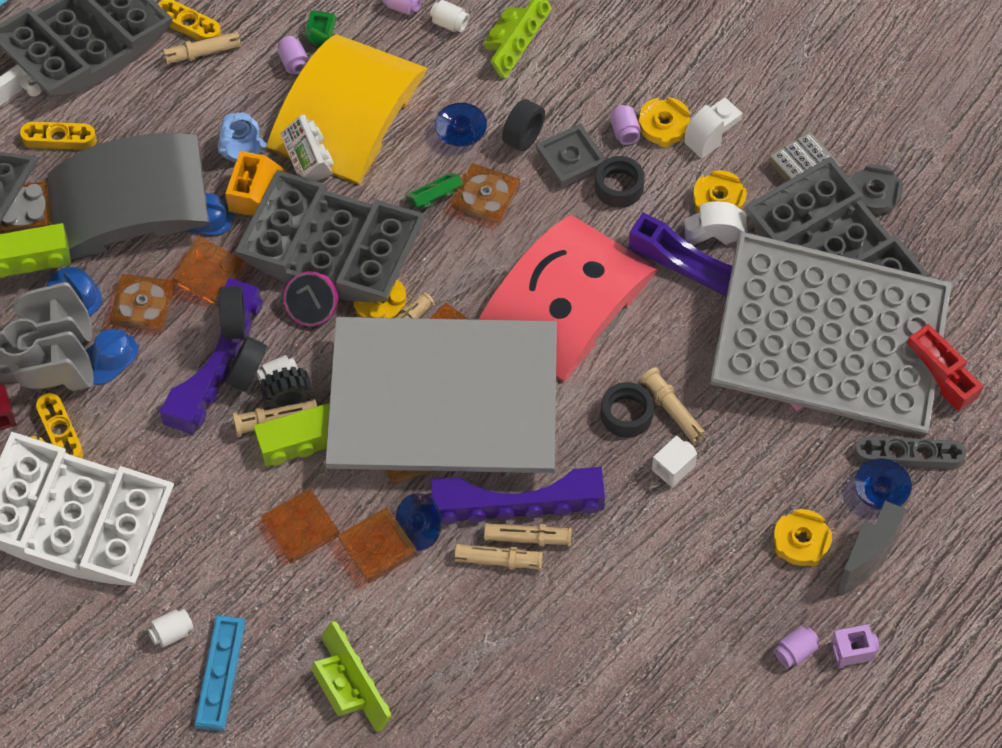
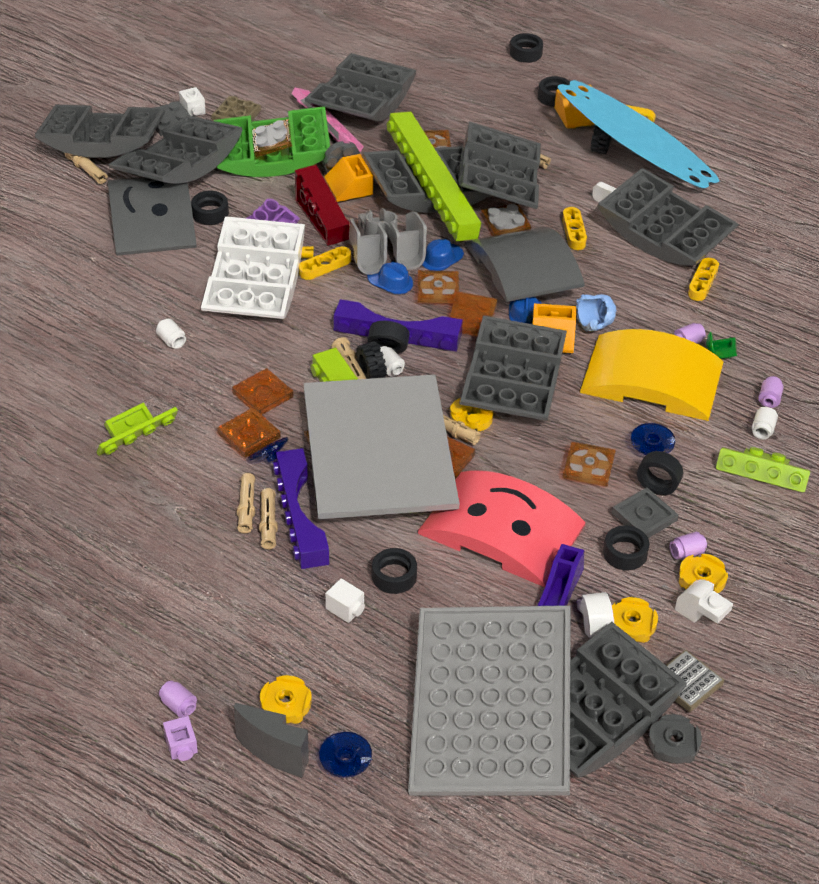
camera: 80 degrees right, 15 degrees down
(201, 48) = (675, 282): tan pin -> none
(220, 673) = (139, 365): dark azure tile -> none
(232, 312) = (418, 301): black tyre -> none
(305, 149) = (590, 346): white slope -> none
(310, 298) = (456, 368): black tile -> none
(442, 186) = (575, 426): green plate -> none
(664, 395) = (412, 594): tan pin -> none
(909, 447) = (384, 779): dark grey beam -> none
(946, 366) = (474, 792): red slope -> none

